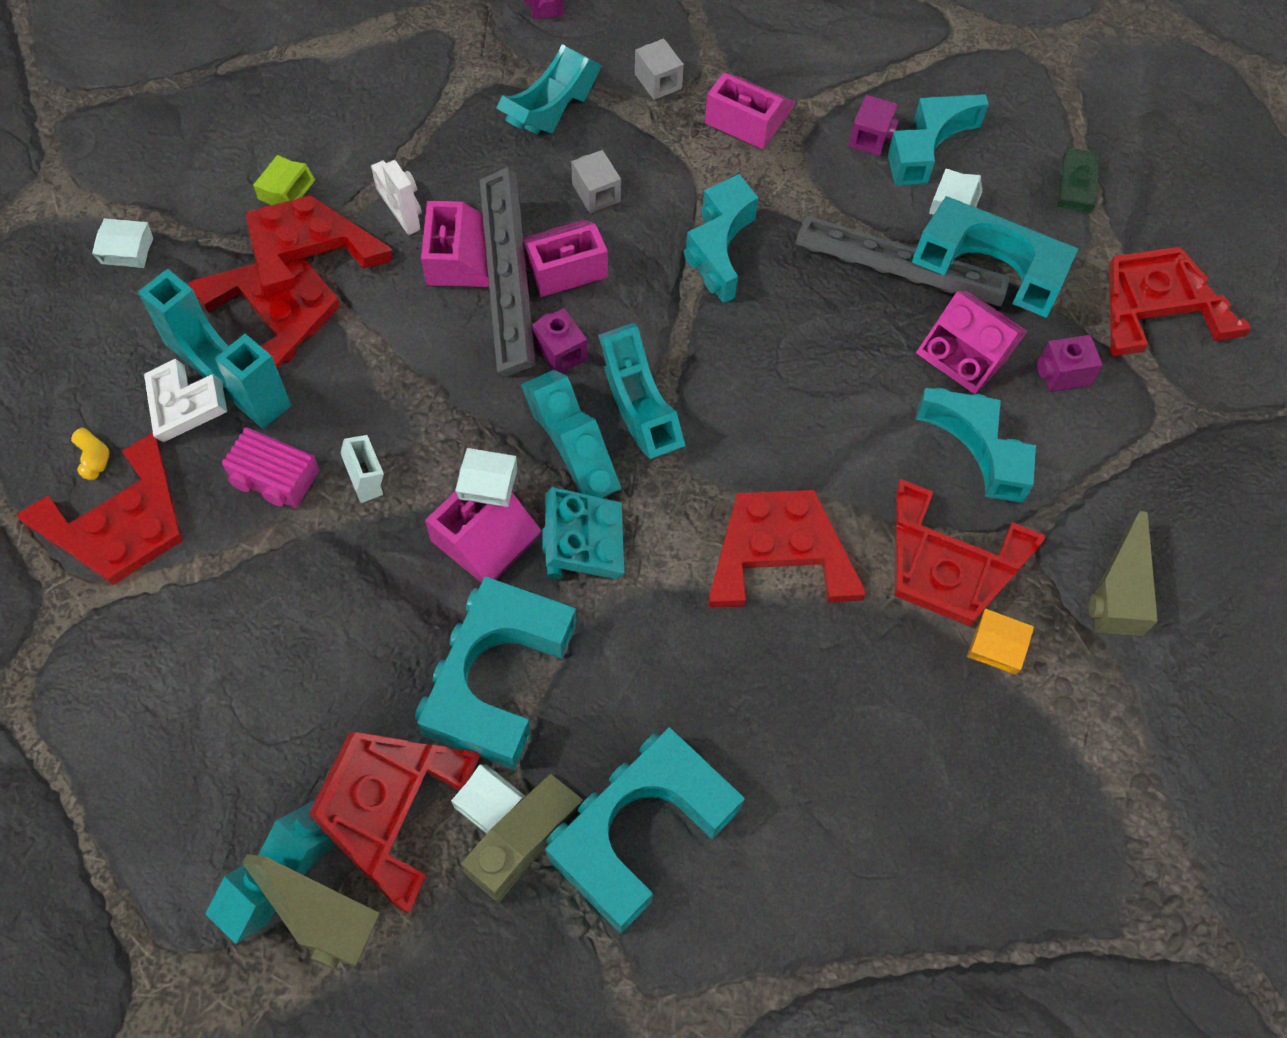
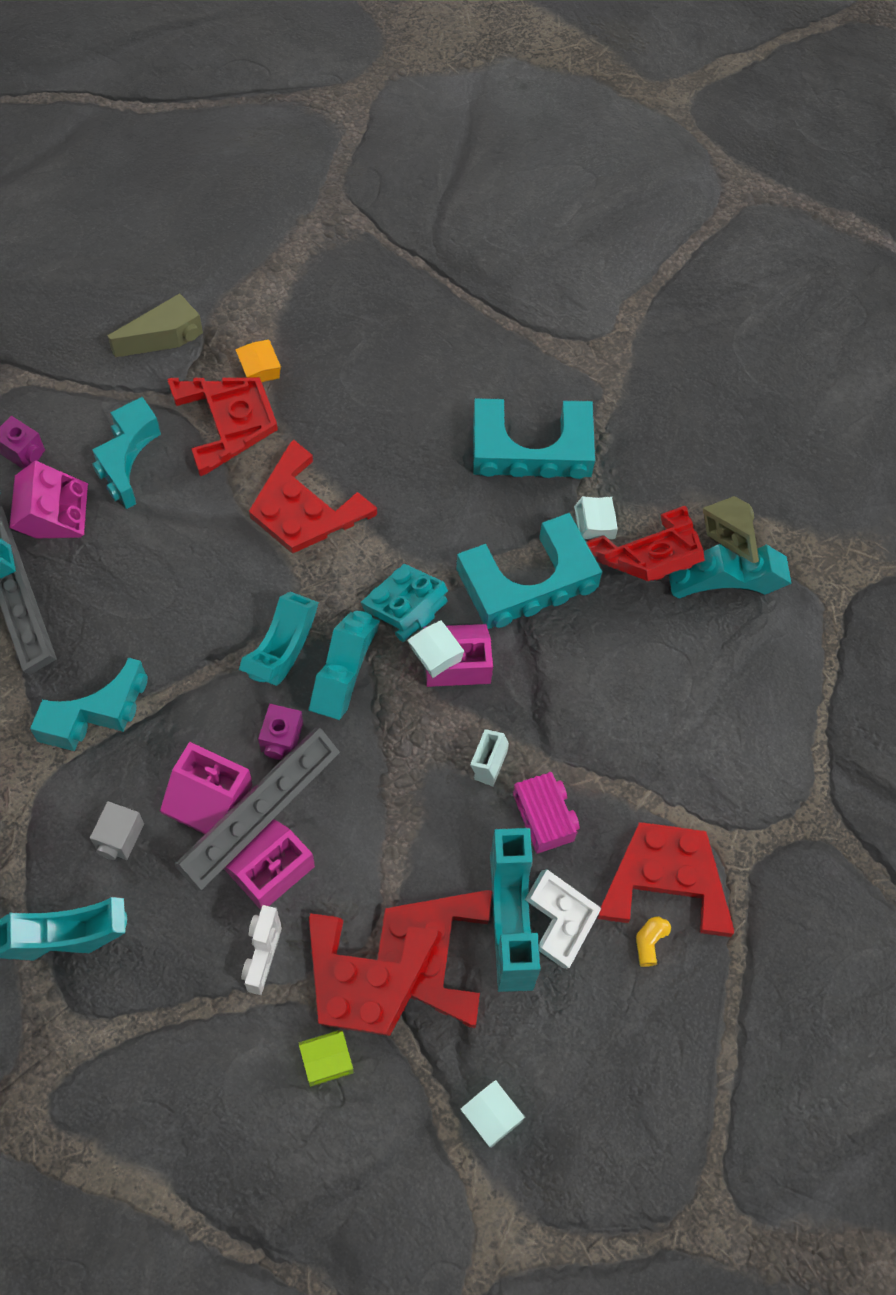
camera: 135 degrees left, 0 degrees up
(519, 837) = (612, 479): olive slope -> none

